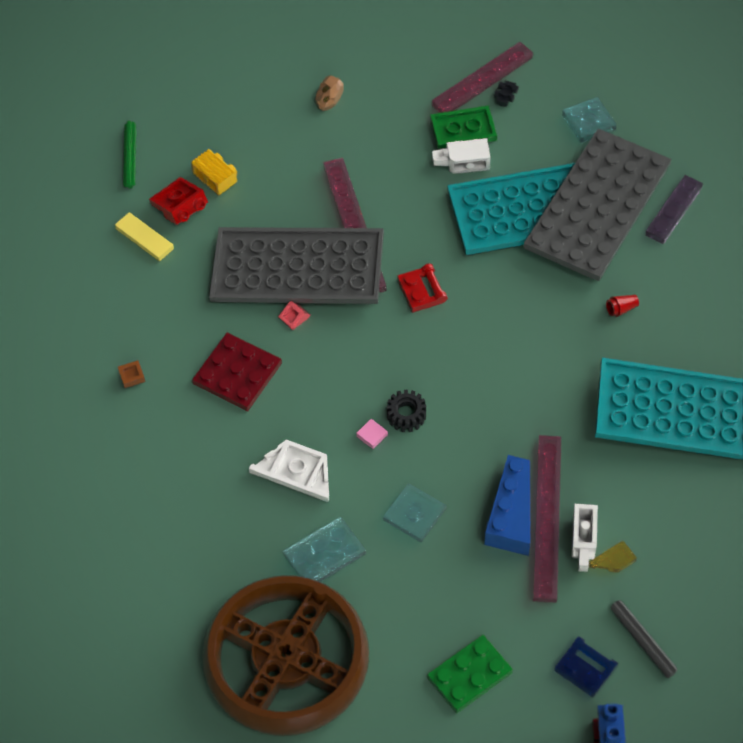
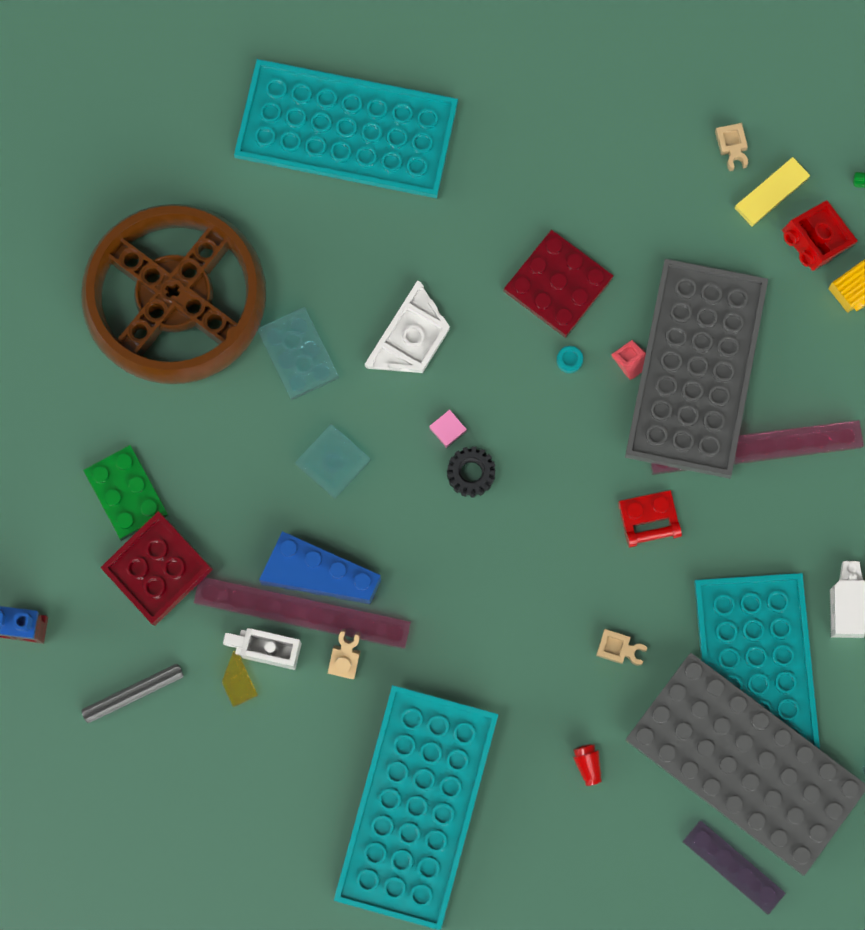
camera: 95 degrees right, 20 degrees up
(105, 264) = (732, 141): none -> tan plate
(114, 546) = (346, 128): none -> teal plate
(131, 374) = (569, 161): dark orange plate -> none
(300, 356) = (569, 359): none -> teal tile
(528, 295) = (615, 647): none -> tan plate
(534, 631) = (156, 568): none -> dark red plate
(577, 478) = (344, 658): none -> tan plate
(582, 673) = (104, 615): clear blue plate -> none

